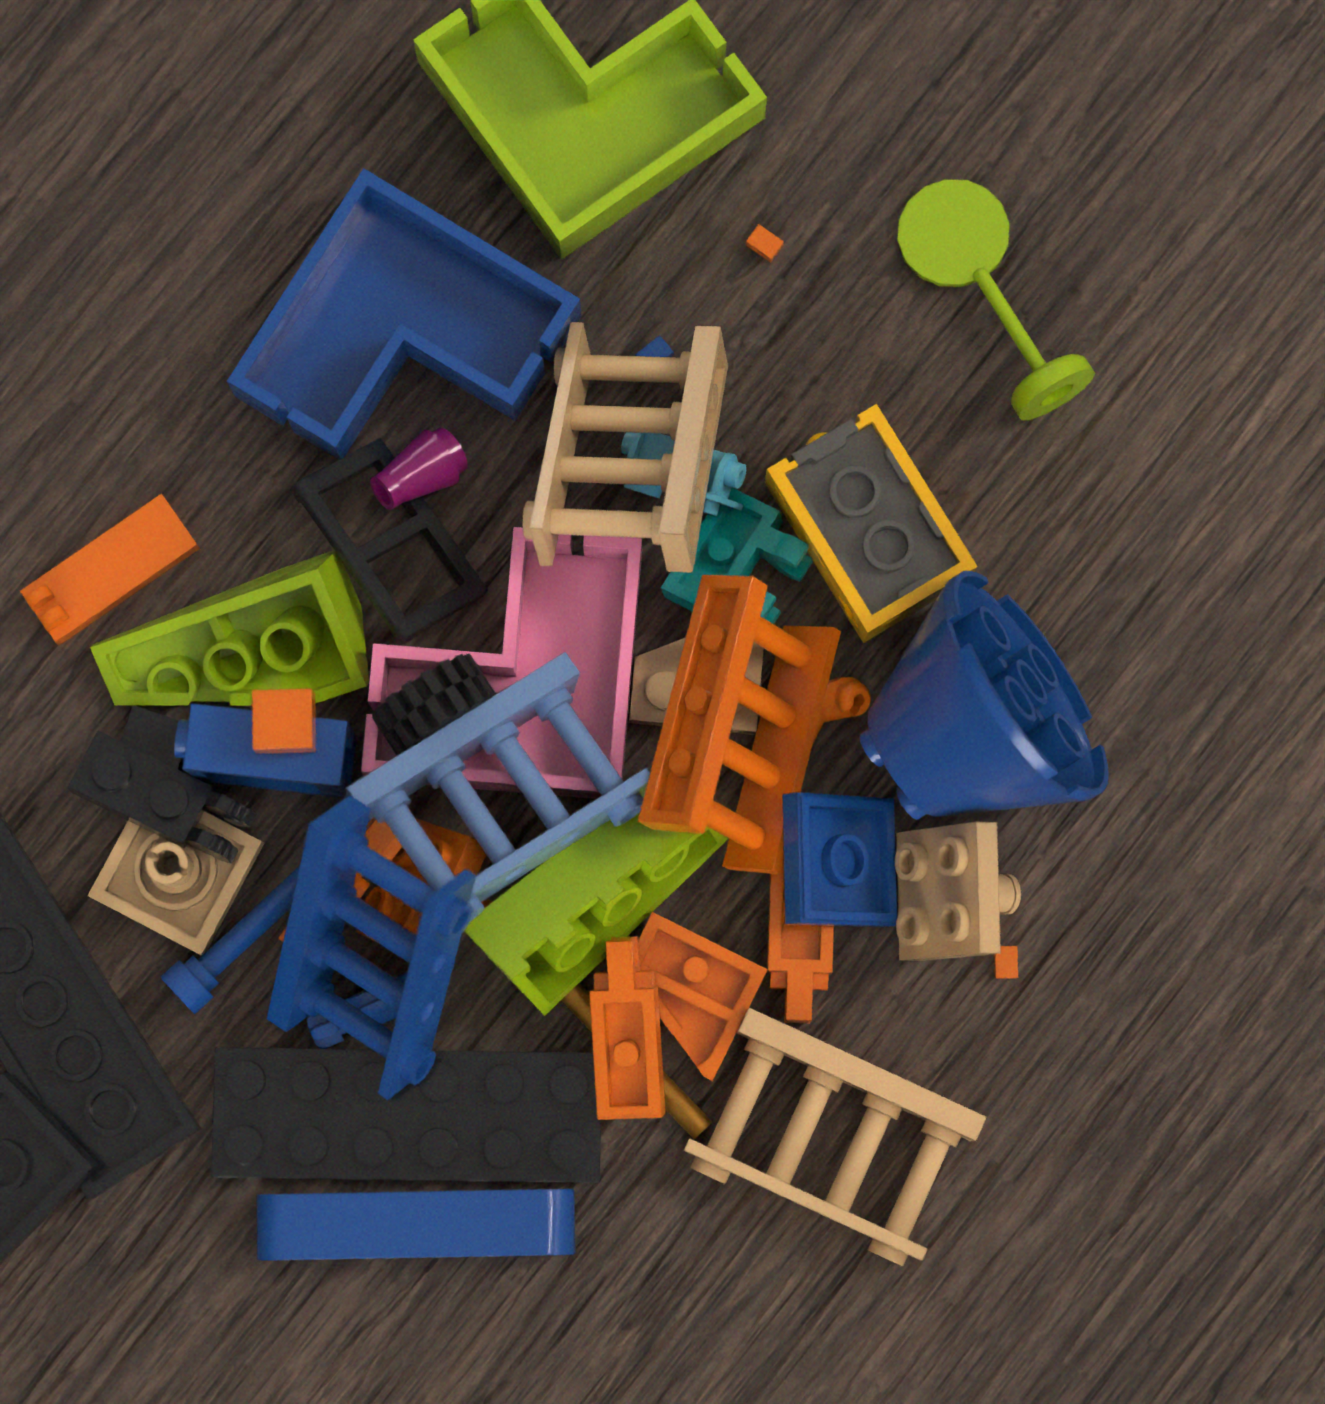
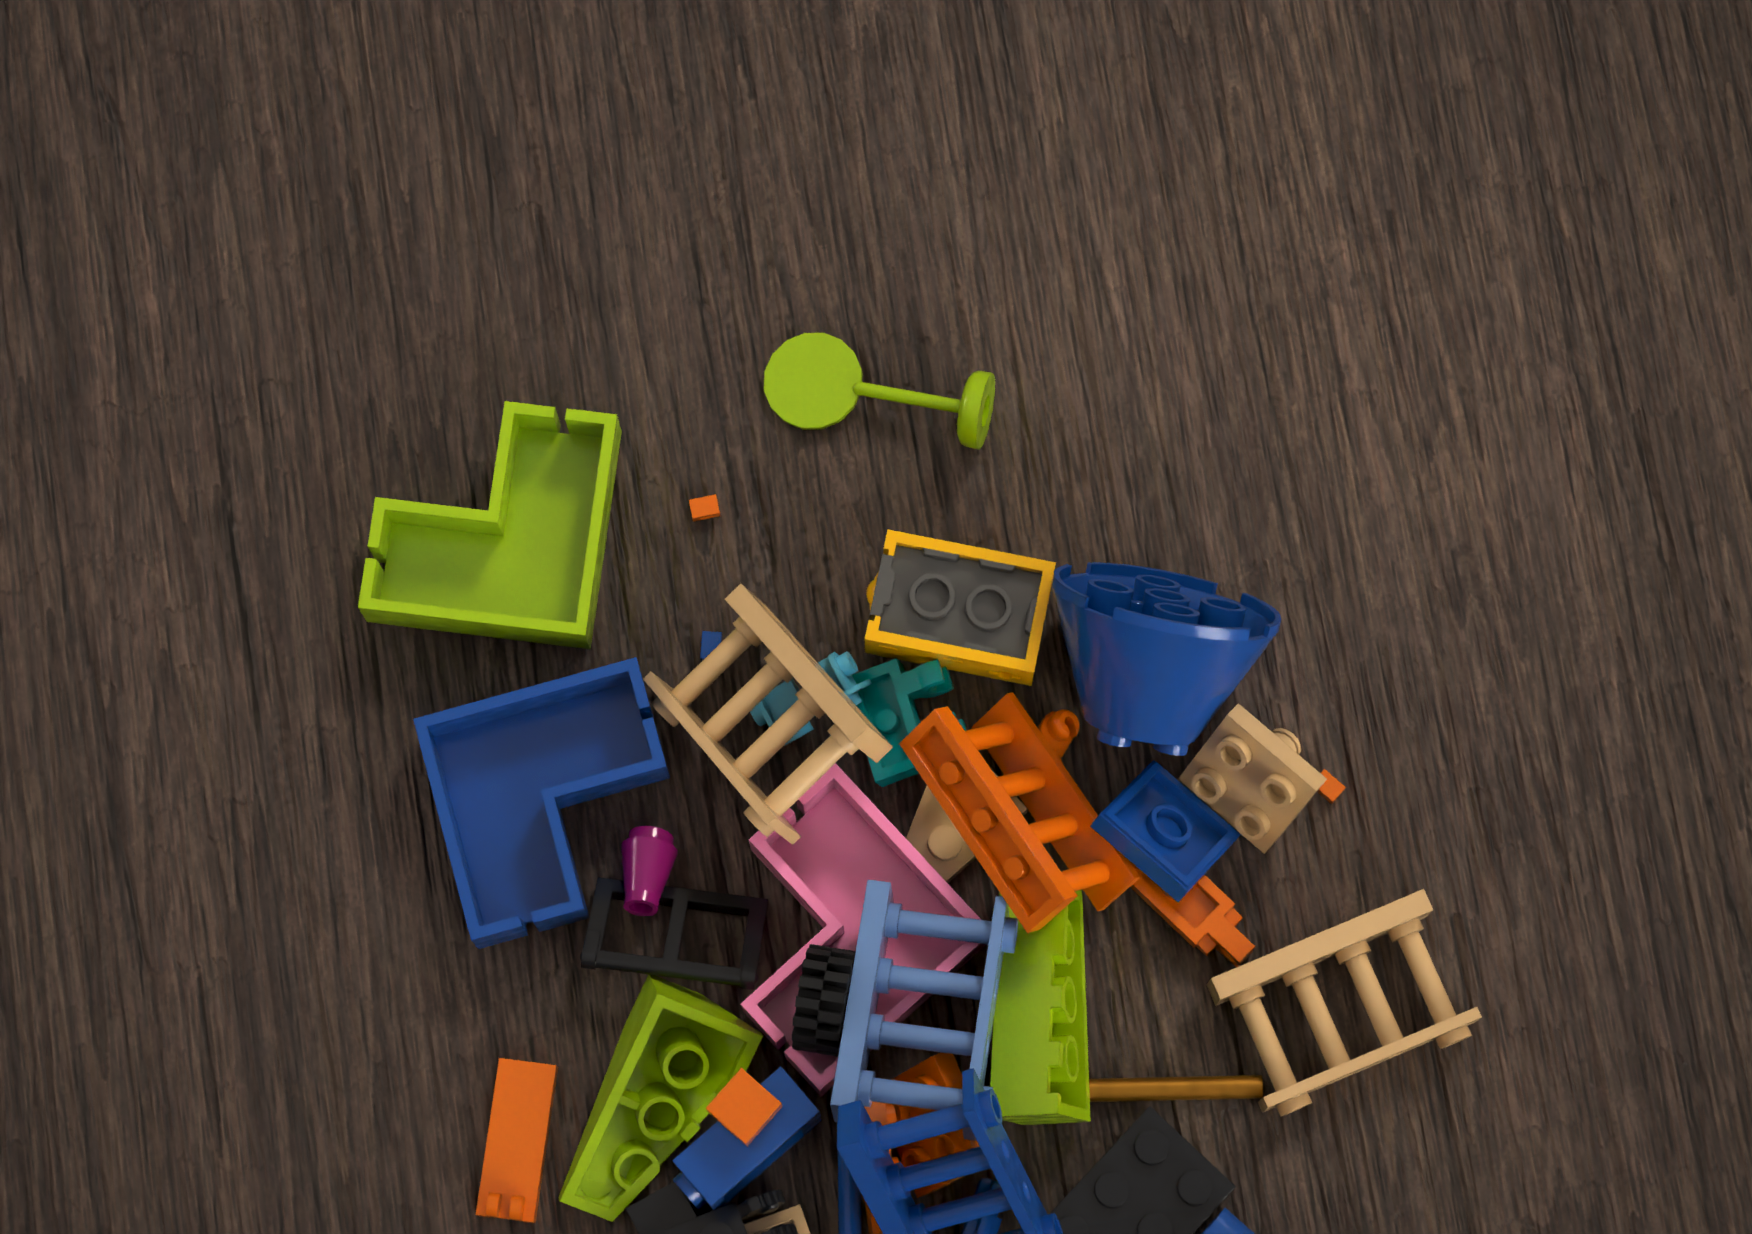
camera: 45 degrees left, 5 degrees down
(626, 1036) = (1156, 1077): orange hinge -> none
(700, 989) = (1162, 1005): orange wing -> none

